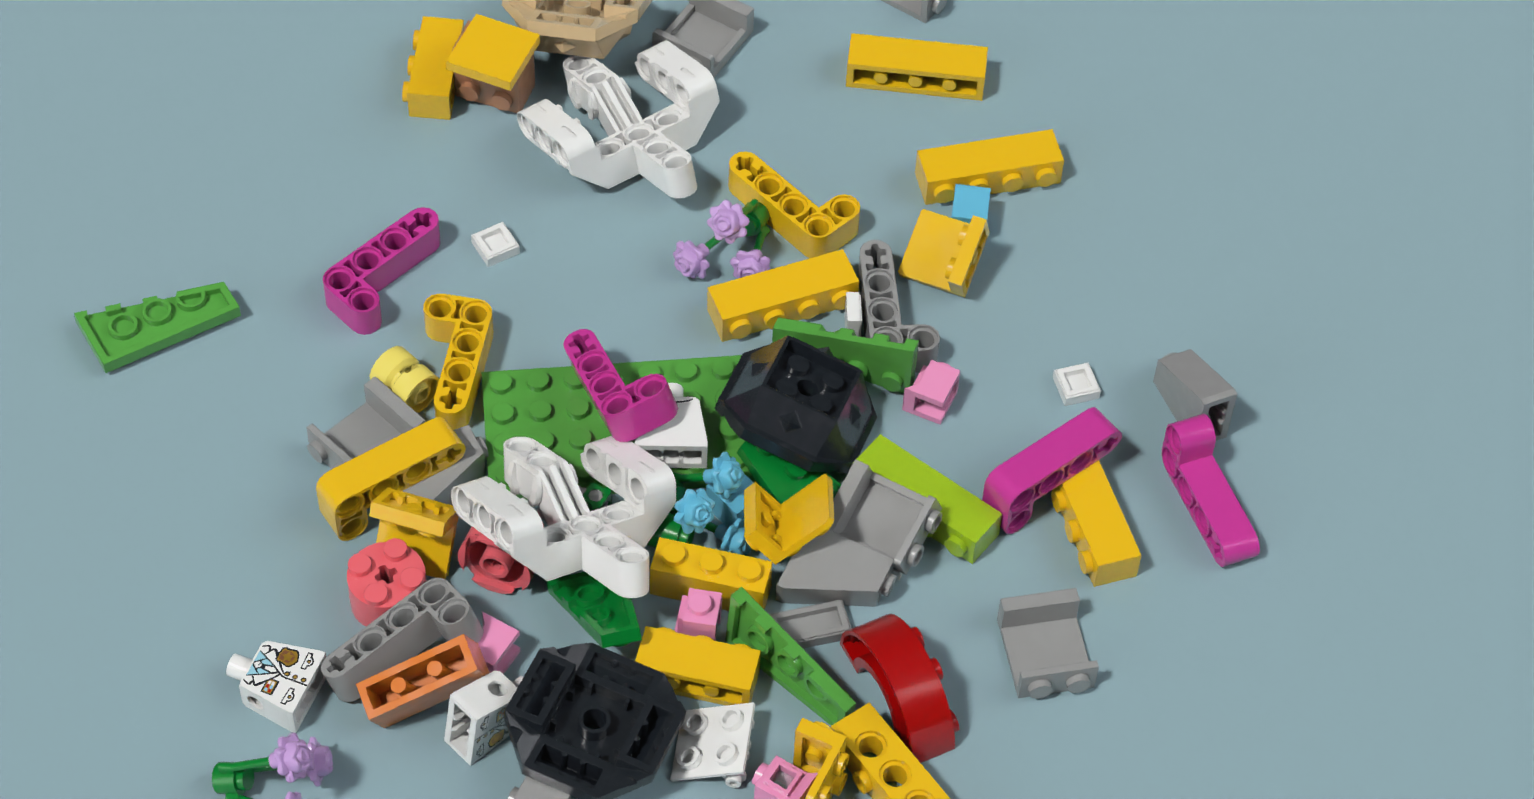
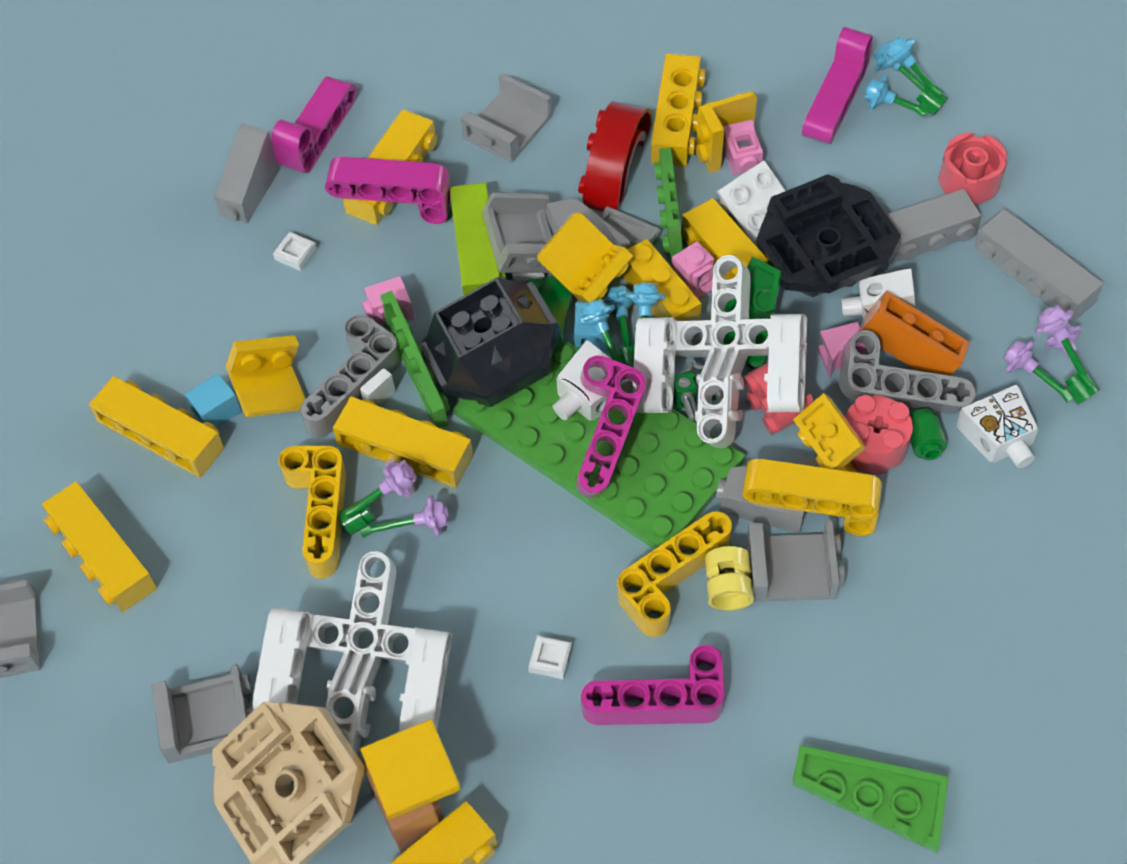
camera: 130 degrees left, 5 degrees up
(339, 621) = (927, 435): none -> green brick

